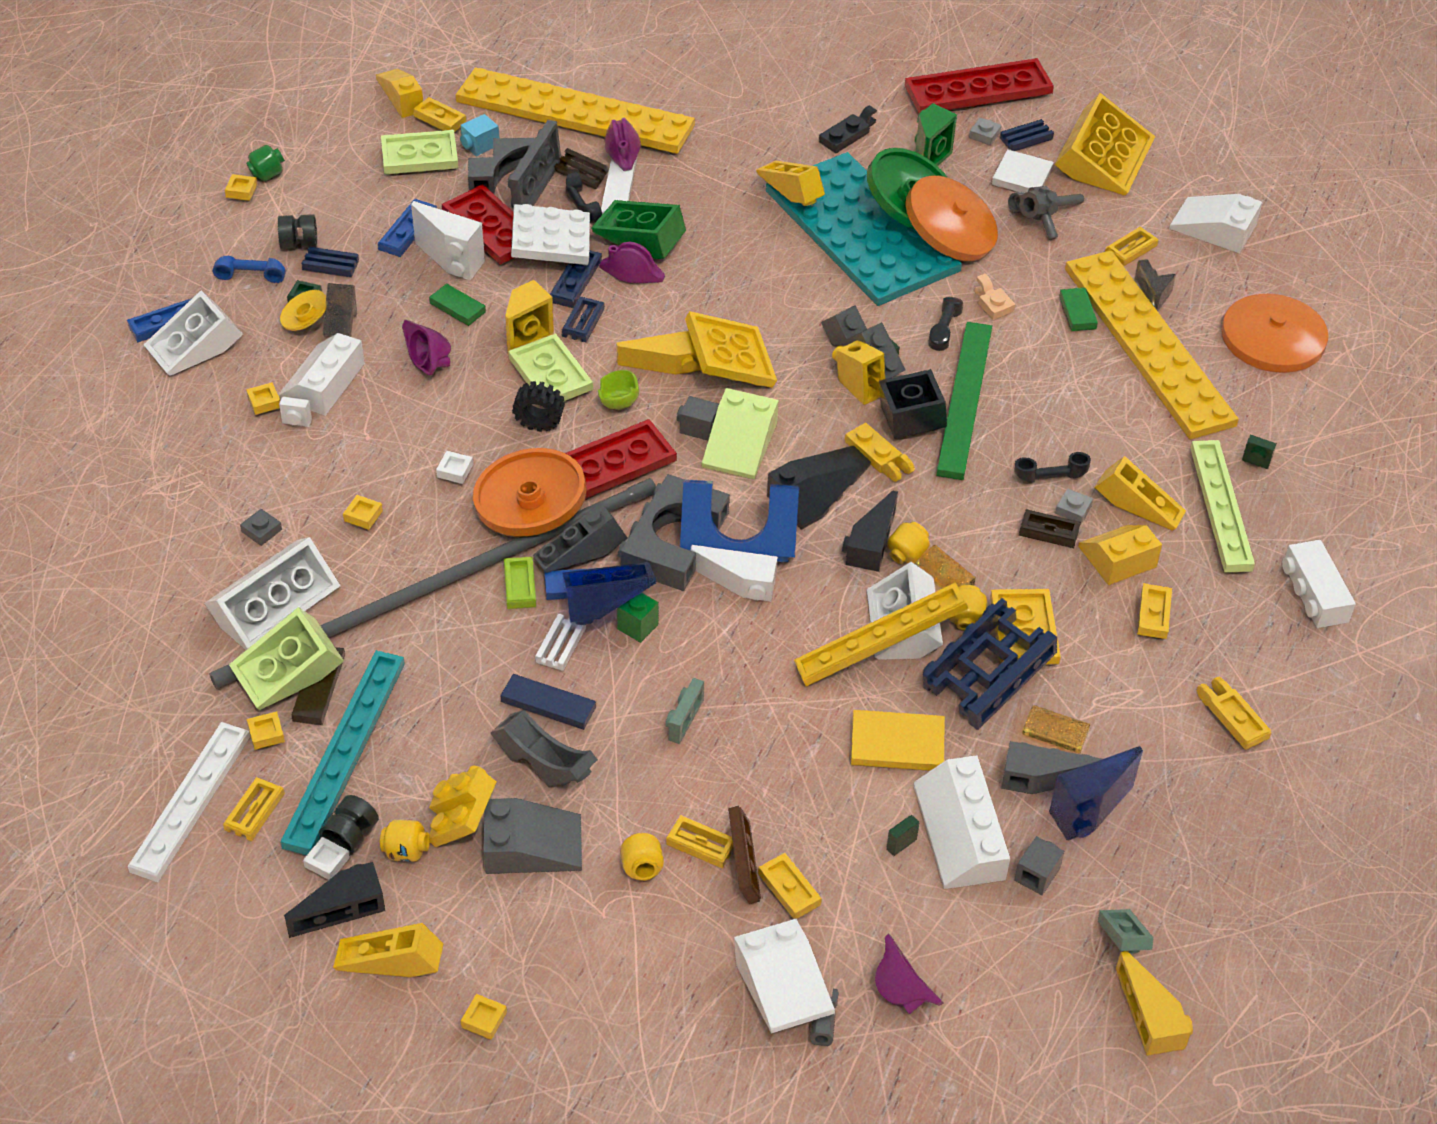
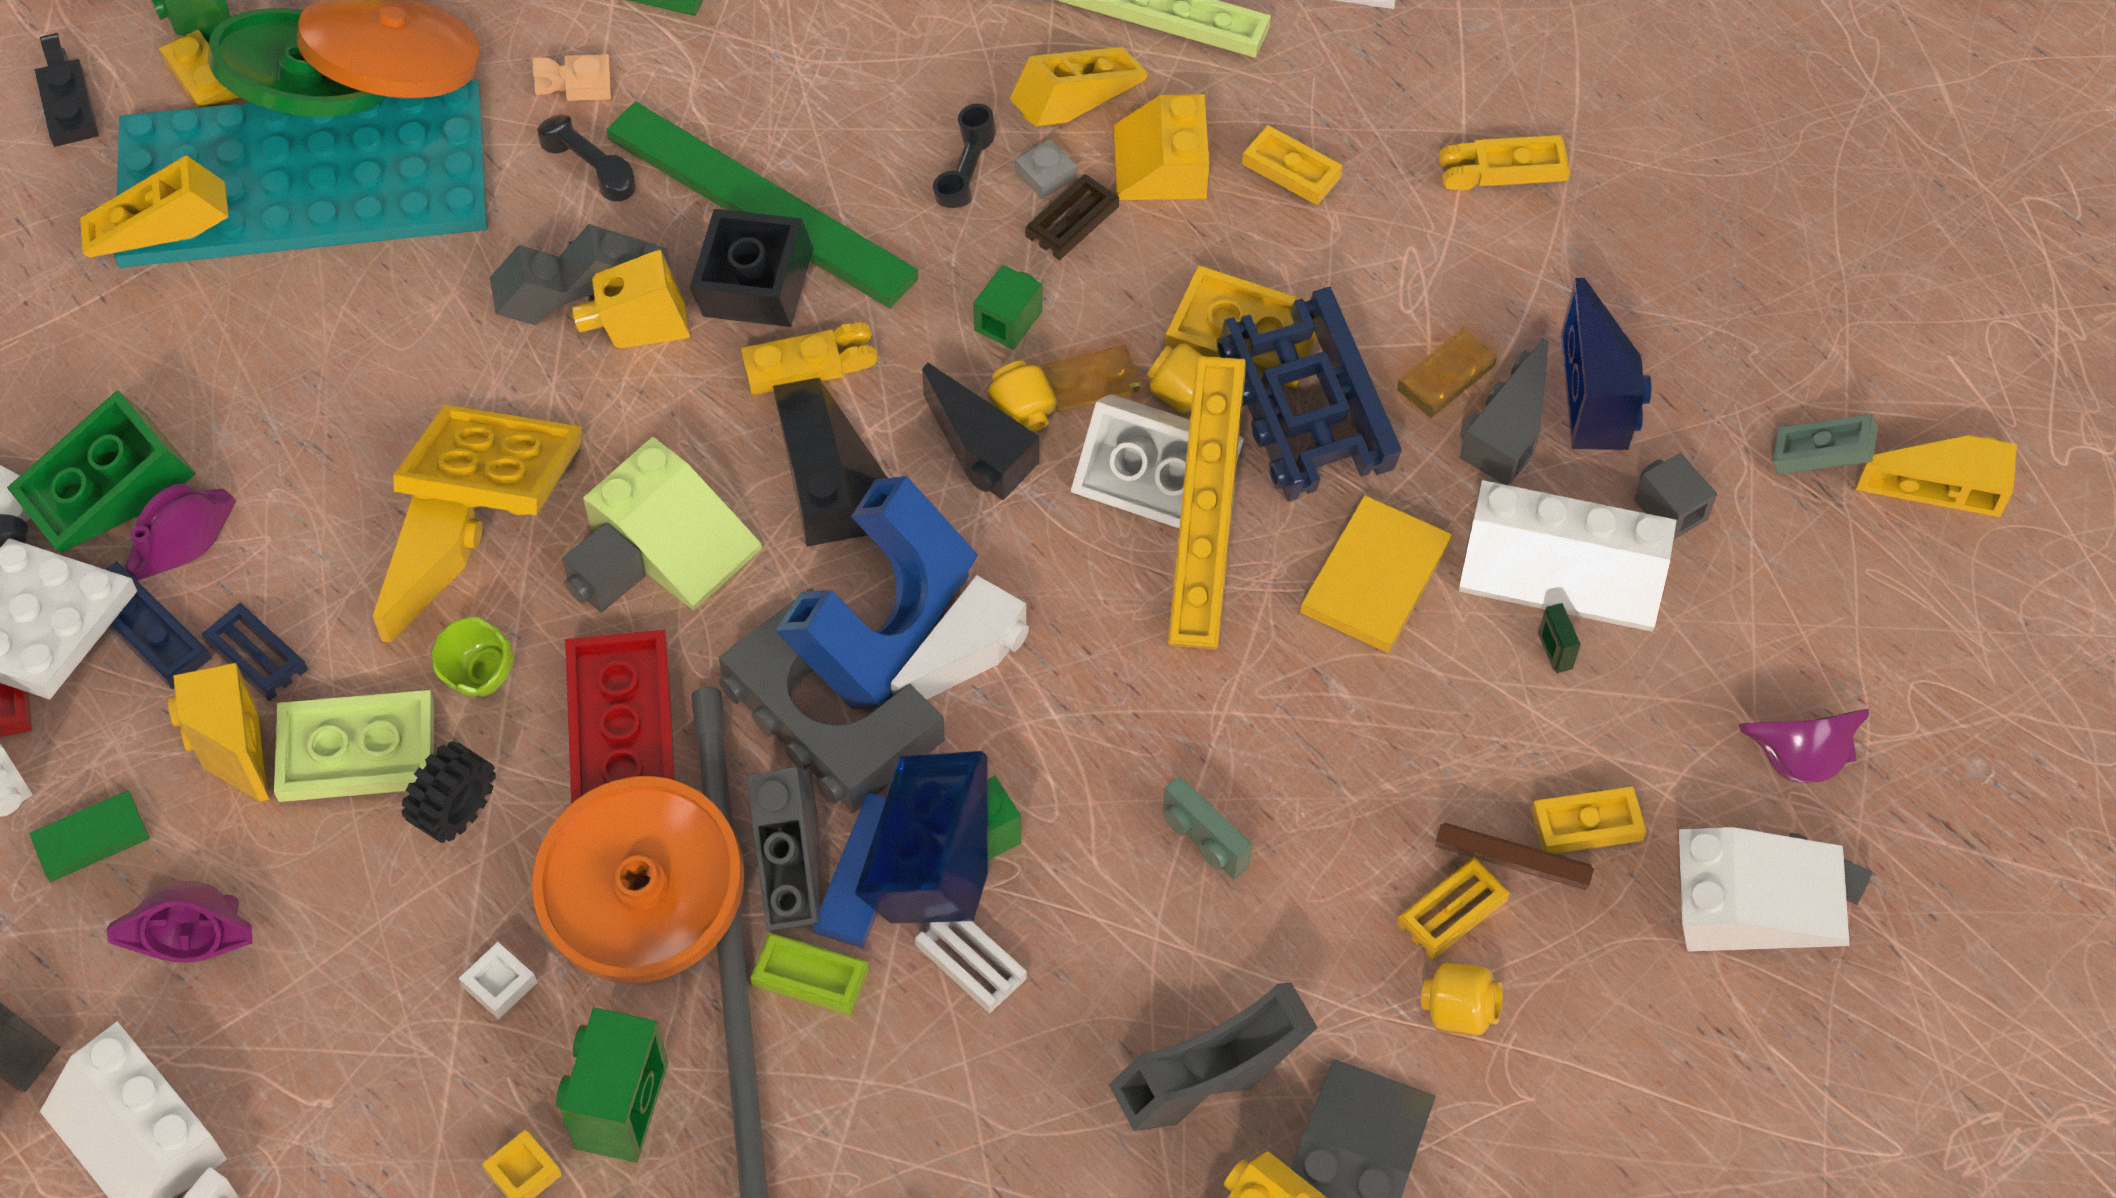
camera: 65 degrees left, 10 degrees up
(414, 521) = (613, 1084): none -> green brick
(548, 701) = (1085, 1023): dark blue tile -> none
(965, 518) = (1008, 306): none -> green brick

